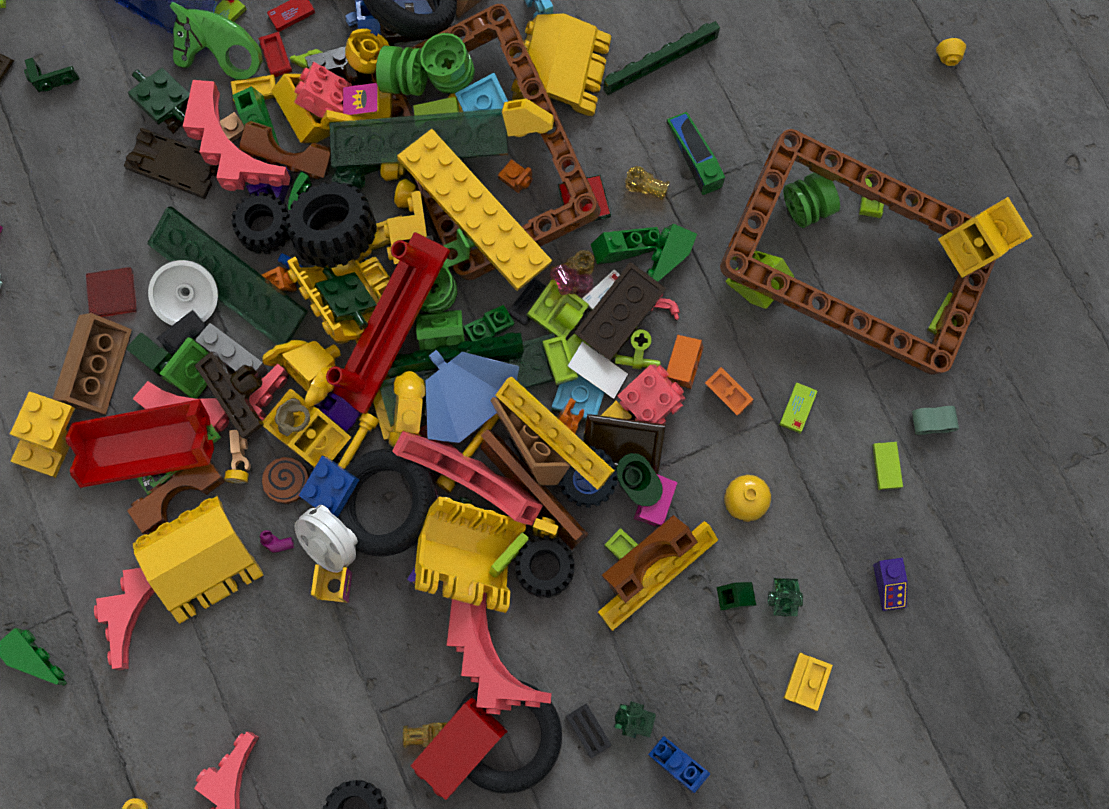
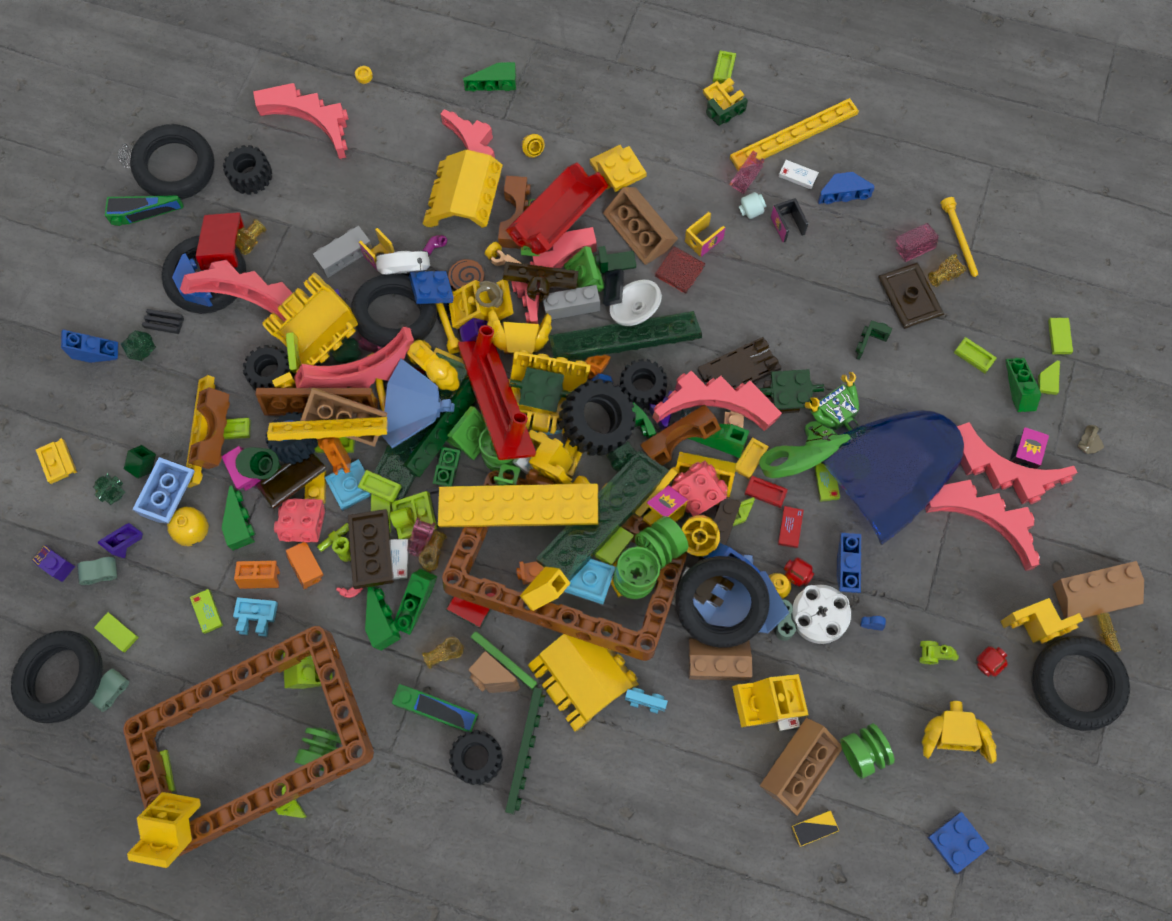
camera: 135 degrees right, 5 degrees down
(65, 308) = (710, 242): none -> yellow piece
(81, 544) = (533, 145): none -> yellow cone
(141, 51) = (838, 406): none -> torso
(361, 622) = (341, 251): none -> light grey brick
(433, 220) = (534, 478): none -> dark orange arm
(530, 726) = (185, 267): none -> blue slope
(597, 370) = (350, 502): white sticker -> none
(608, 131) = (504, 661): none -> bright green tile
(632, 116) = (492, 676): none -> medium nougat slope
(706, 70) = (459, 750): none -> black tyre
(709, 452) = (235, 523): none -> green slope
(739, 540) = (163, 491): none -> light blue slope
(758, 364) = (256, 610): none -> medium azure plate
(815, 538) = (120, 540): none -> dark purple slope
(858, 534) = (97, 570): none -> sand green axle
(1009, 473) = (32, 660): none -> black tyre

